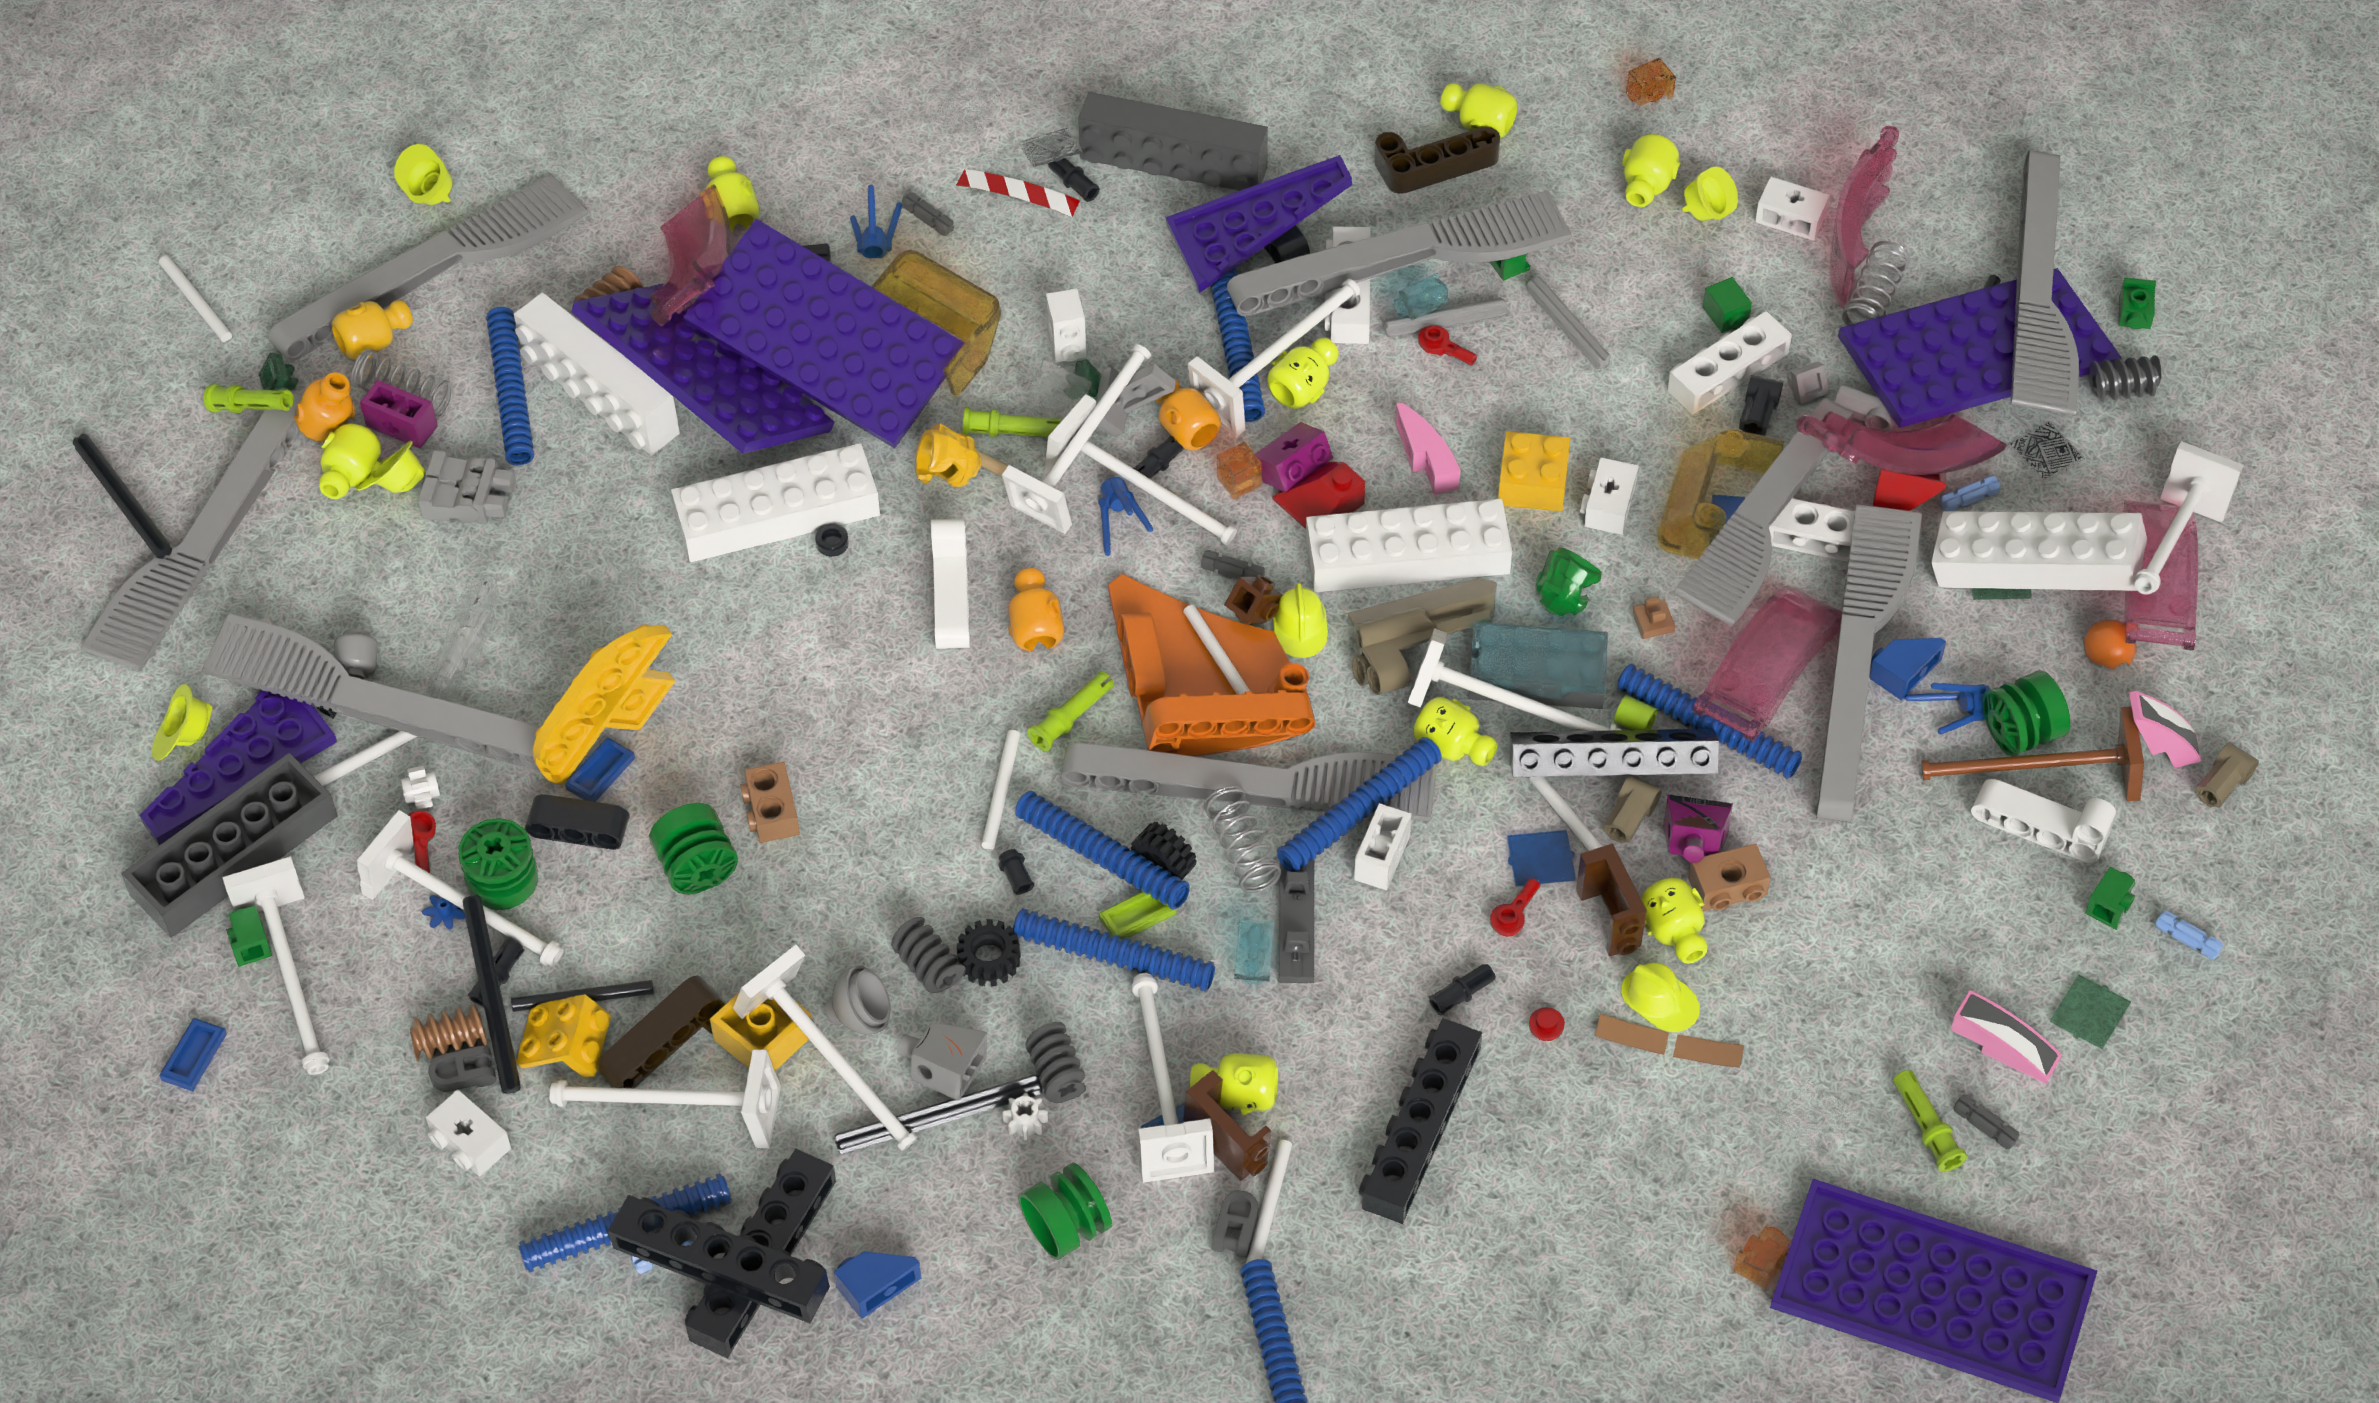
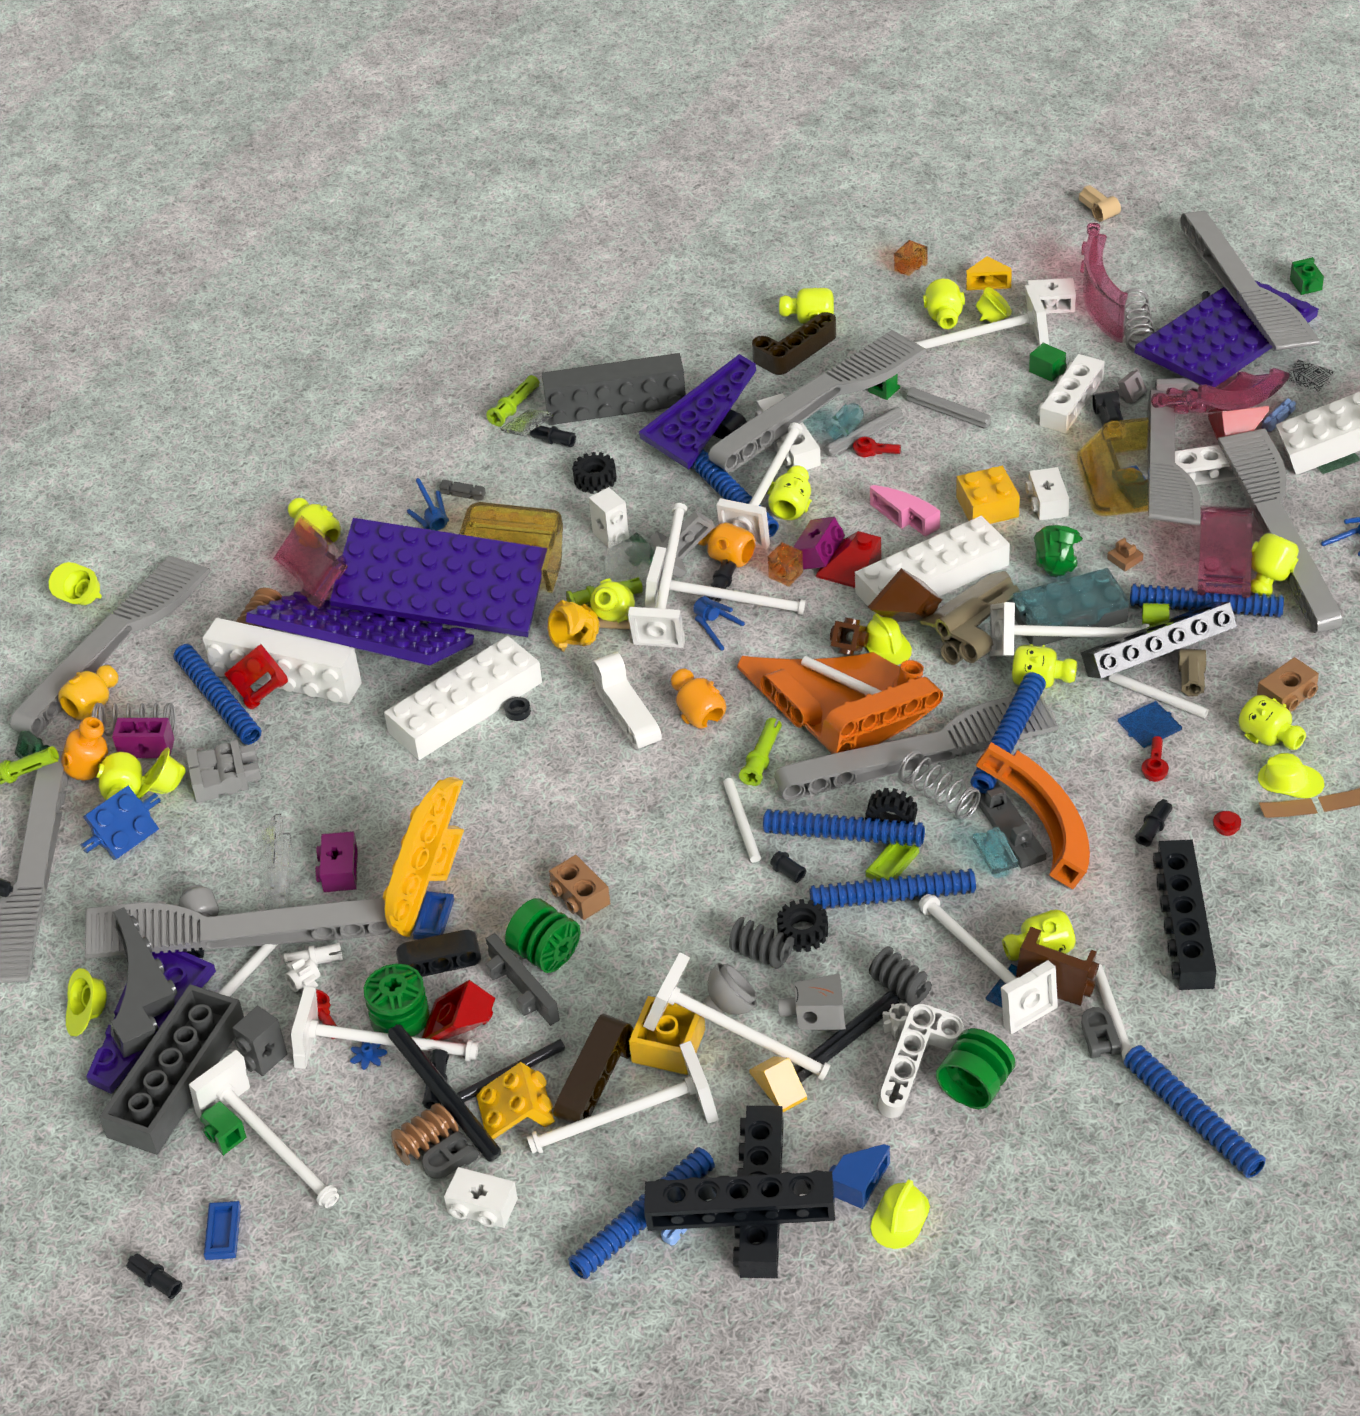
camera: 20 degrees left, 10 degrees down
(99, 1077) = (154, 1275): none -> black axle
(240, 740) = (146, 989): none -> dark grey arch
(322, 515) = (120, 823): none -> blue plate
(329, 851) = (260, 1040): none -> dark grey brick
(448, 767) = (317, 955): none -> white pin
(530, 660) = (337, 862): none -> magenta brick
(551, 375) = (252, 668): none -> red plate
(559, 903) = (459, 1012): none -> red slope
(640, 864) = (533, 995): none -> dark grey hinge
(847, 1136) = (779, 1082): none -> slope
(894, 1344) = (900, 1215): none -> neon yellow piece
(1004, 1172) = (910, 1061): none -> white beam
(1007, 442) = (612, 601): none -> neon yellow piece
(1019, 189) = (517, 455): sticker -> none
(1043, 113) = (508, 405): none -> lime pin
(1091, 264) = (594, 481): none -> black tyre
(1230, 566) = (814, 625): dark grey axle -> none
(1343, 577) = (905, 598): none -> reddish brown slope
(1350, 923) = (1051, 805): none -> orange arch
(1382, 846) = (1042, 746): white brick -> none
(1605, 875) = (1224, 721): reddish brown panel -> none
(1696, 826) = (1248, 662): magenta torso -> none
(1732, 146) = (988, 274): none -> yellow slope
(1746, 233) = (1034, 316): none -> white tile
(1809, 704) = (1272, 560): none -> neon yellow piece
(1905, 663) = (1311, 521): blue slope -> none
(1943, 94) = (1101, 206): none -> tan piece
(2125, 376) = (1331, 316): dark grey piece -> none

